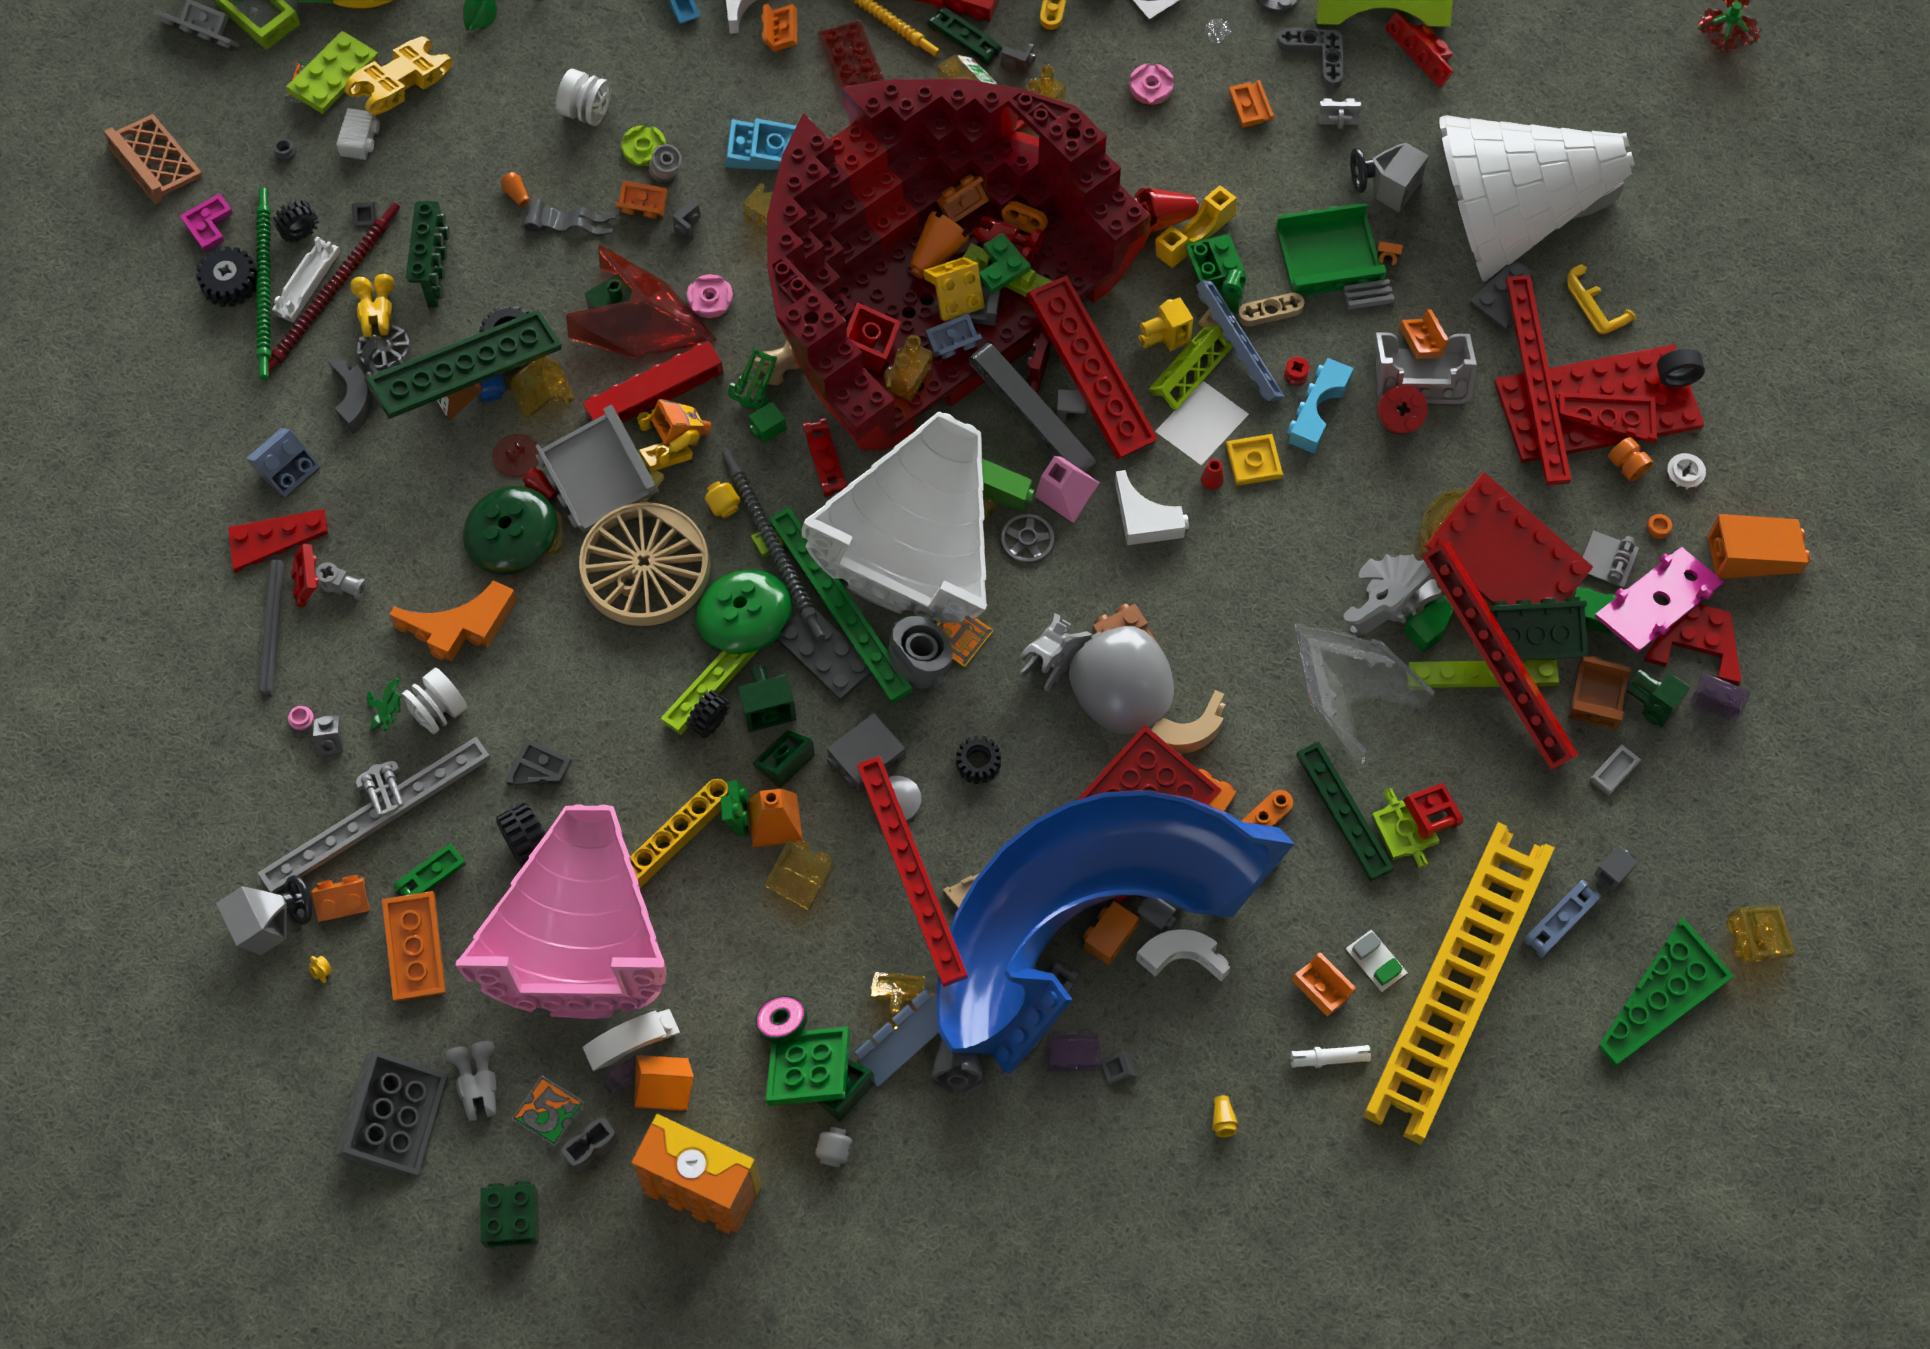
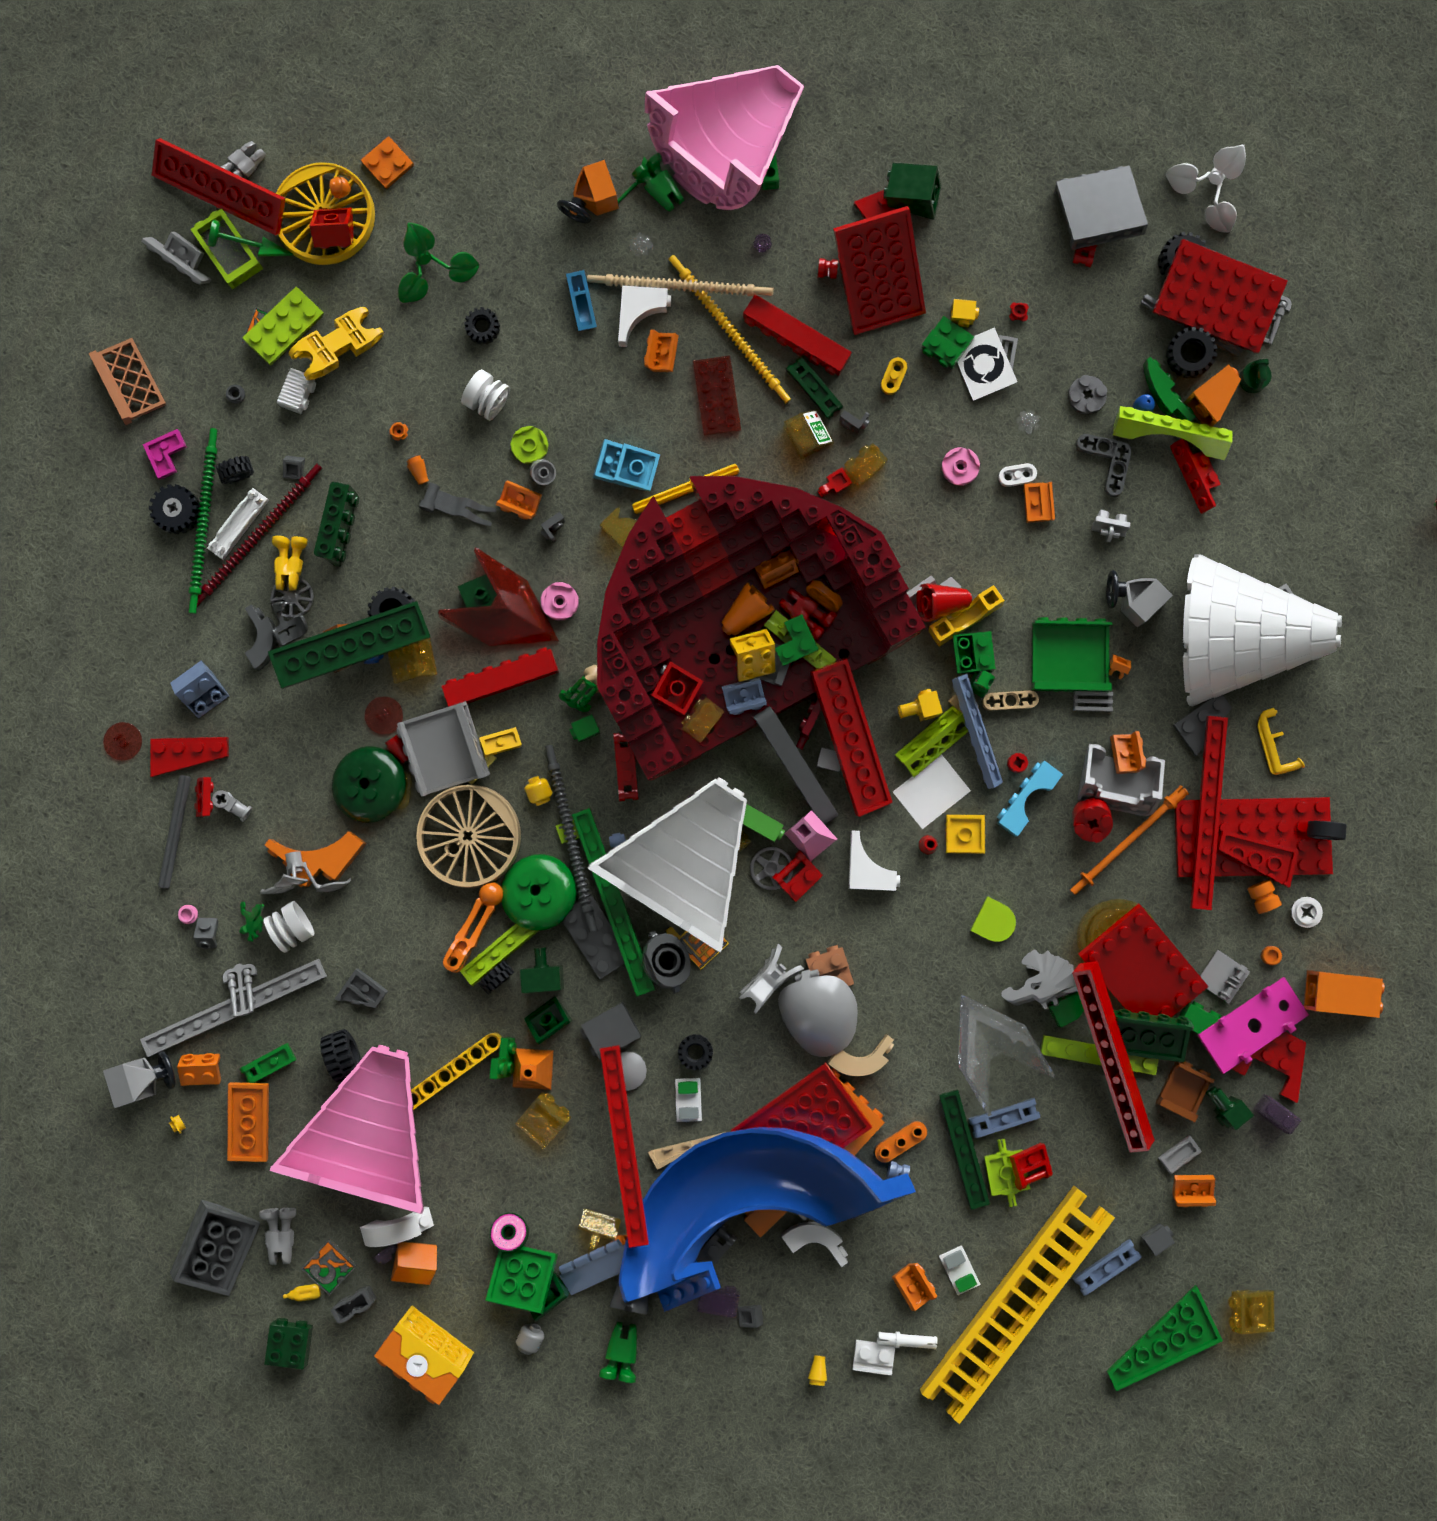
camera: 15 degrees right, 20 degrees up
(192, 539) = (122, 741): none -> clear red piece
(436, 622) = (294, 866): none -> light grey plant
(485, 150) = (398, 426): none -> orange plate
(519, 1151) = (304, 1293): none -> yellow piece
(562, 26) = (482, 314): none -> black tyre
(659, 686) = (489, 895): none -> orange piece
(676, 425) = (512, 722): torso -> none
(959, 1137) = (621, 1351): none -> green piece
(981, 821) = (688, 1099): none -> piece
(1068, 542) = (801, 881): none -> red plate
(1217, 81) = (1016, 475): none -> white plate
(1292, 1087) = (873, 1357): none -> white plate
(1314, 547) = (994, 921): none -> lime tile
(1385, 766) = (1004, 1118): none -> sand blue plate
(1488, 382) = (1170, 802): none -> orange bar
(1644, 803) = (1194, 1190): none -> orange bracket

